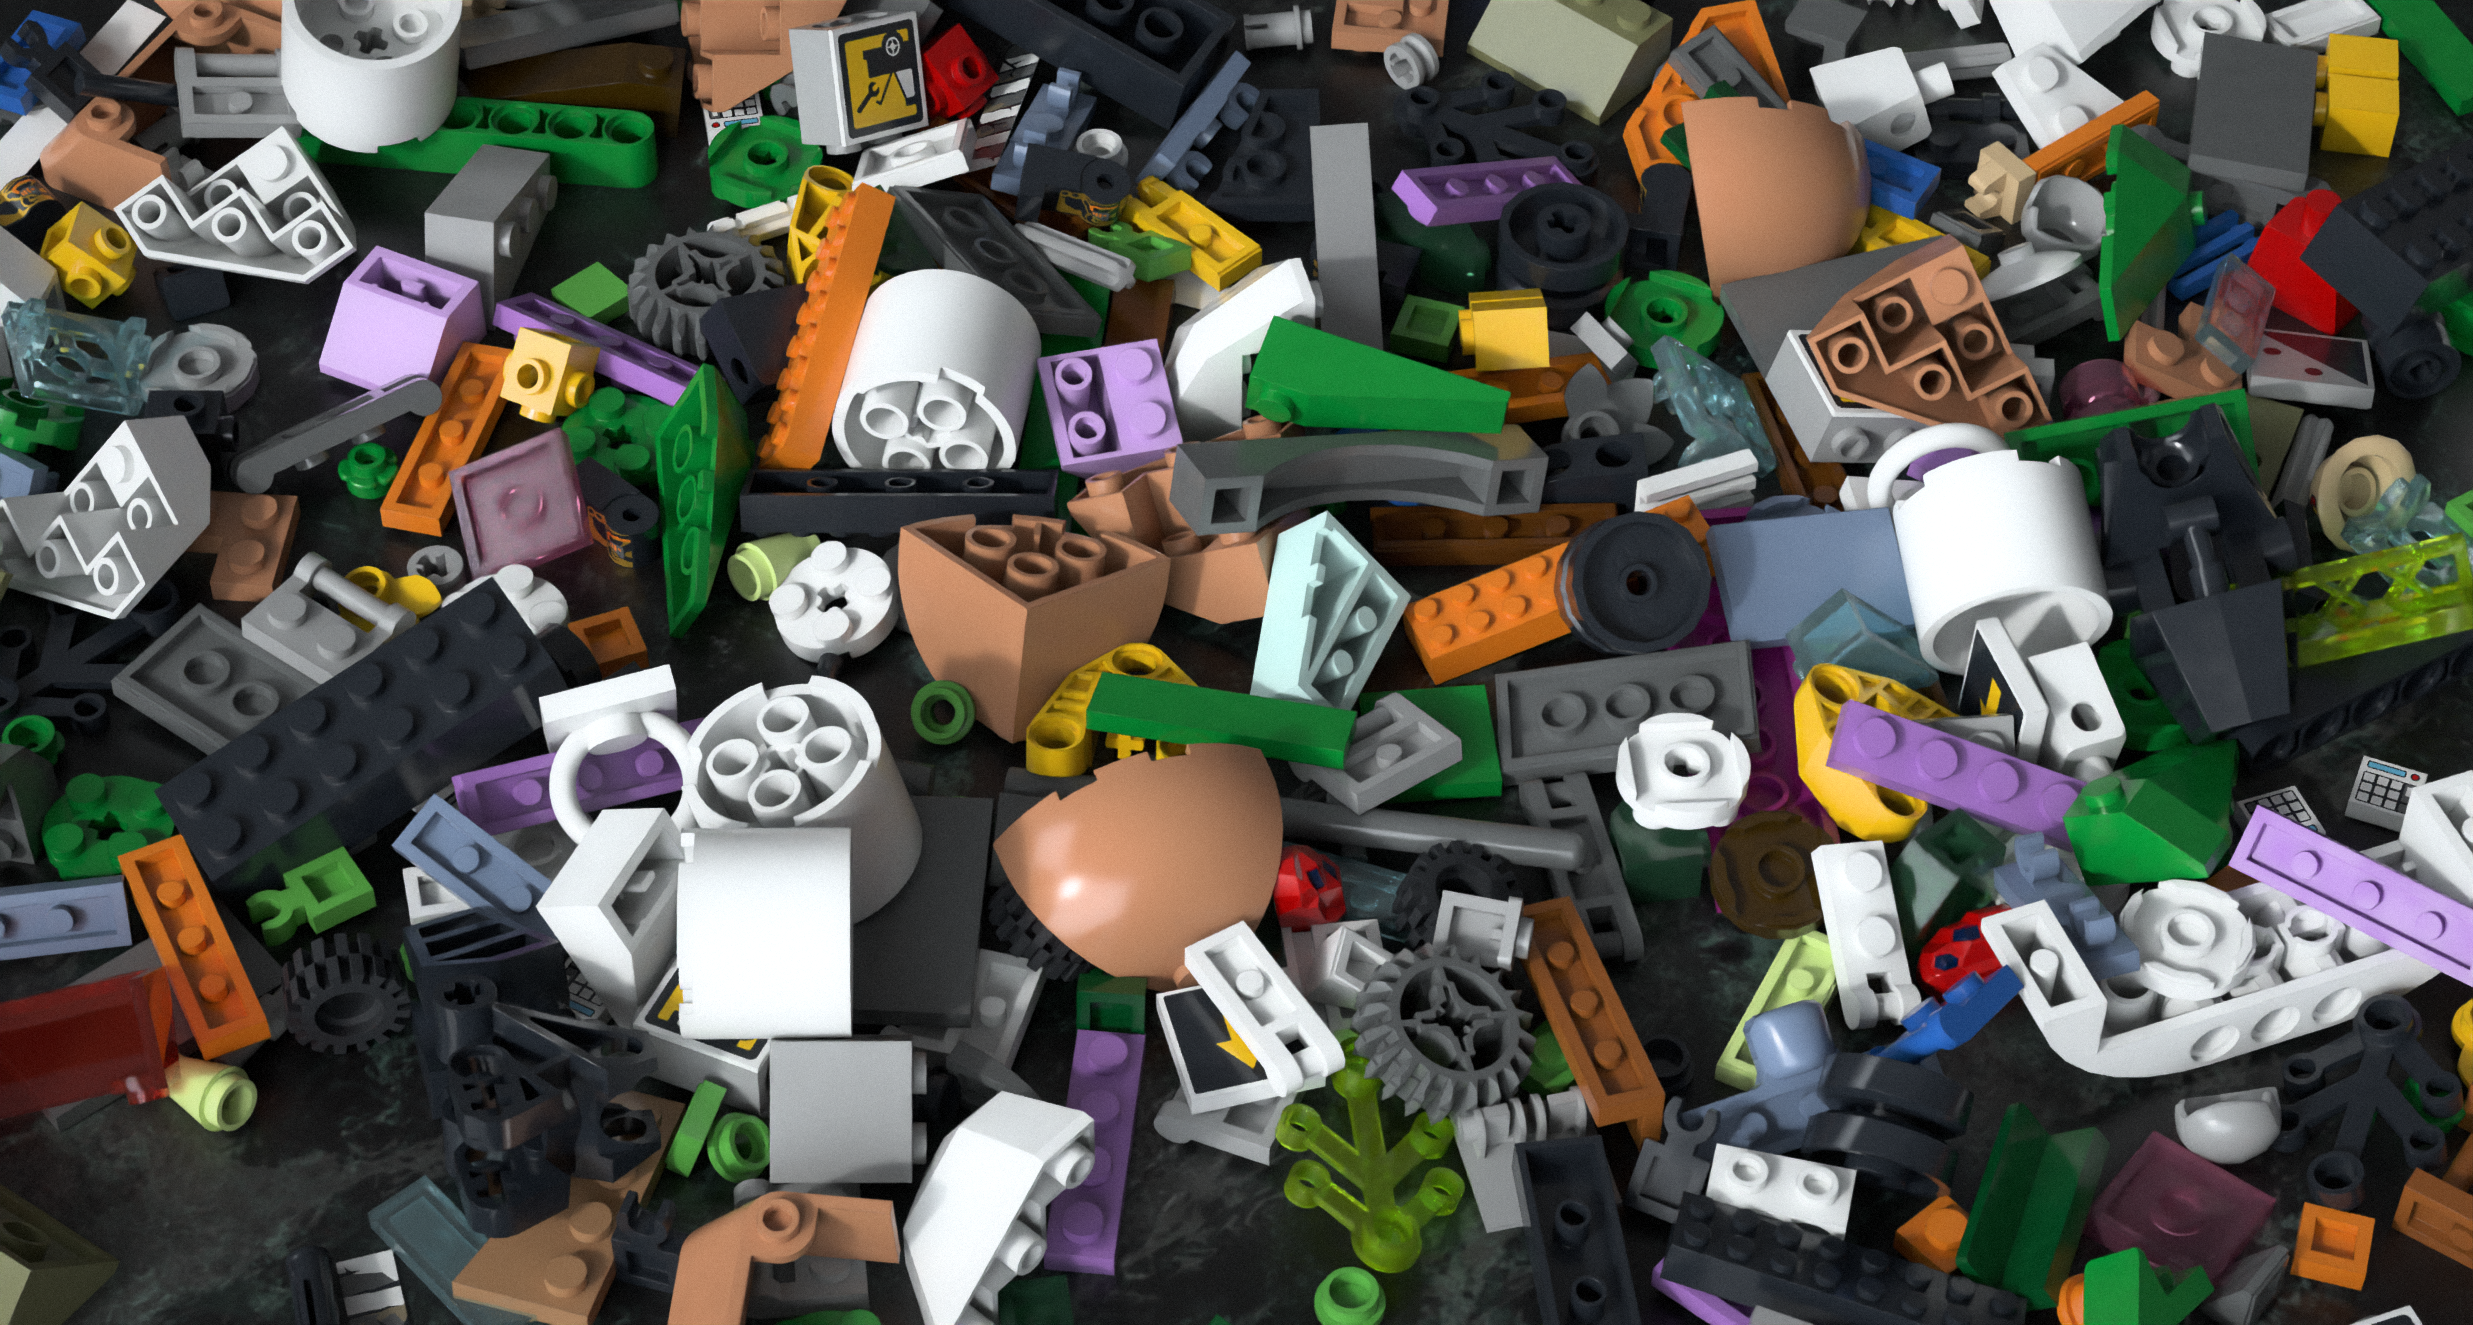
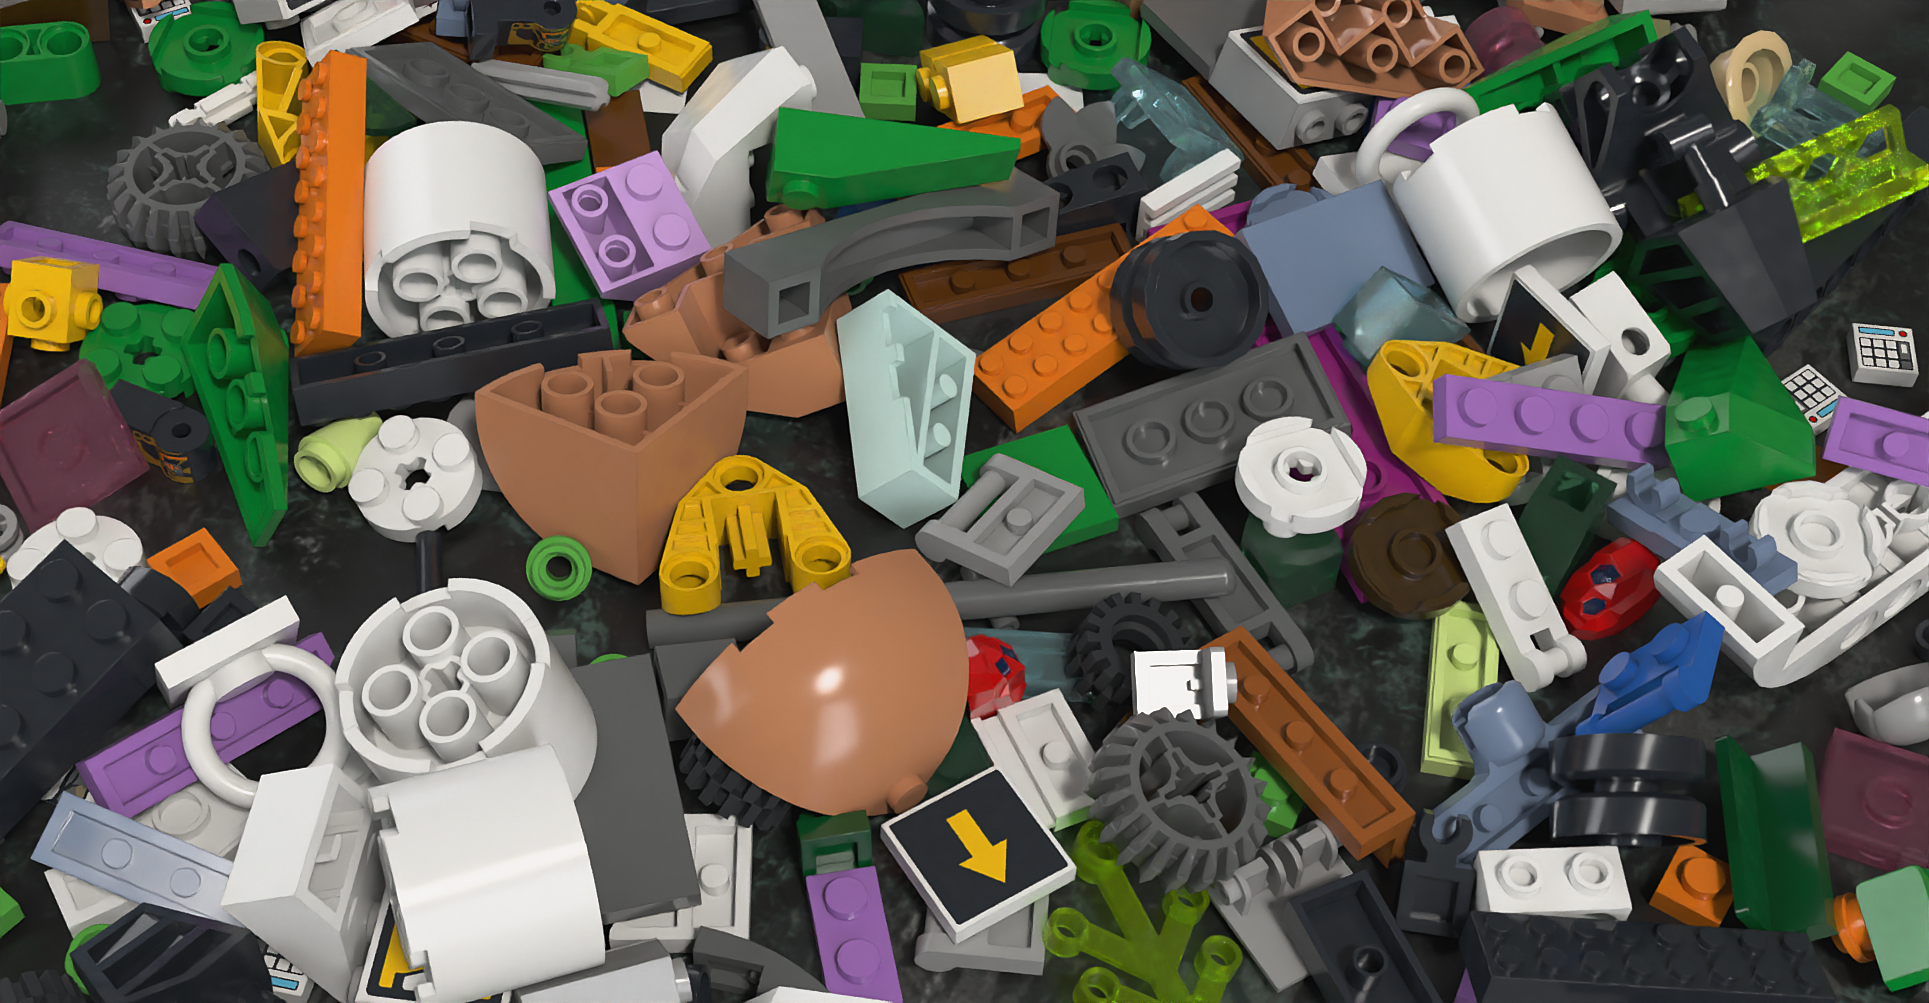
camera: 20 degrees left, 5 degrees up
(594, 294) = (73, 210): bright green tile -> none
(1208, 715) = (849, 521): green tile -> none
(1264, 1007) = (999, 817): white plate -> none
(1343, 968) = (1054, 751): white slope -> none
(1607, 342) = (1060, 73): light grey plate -> none

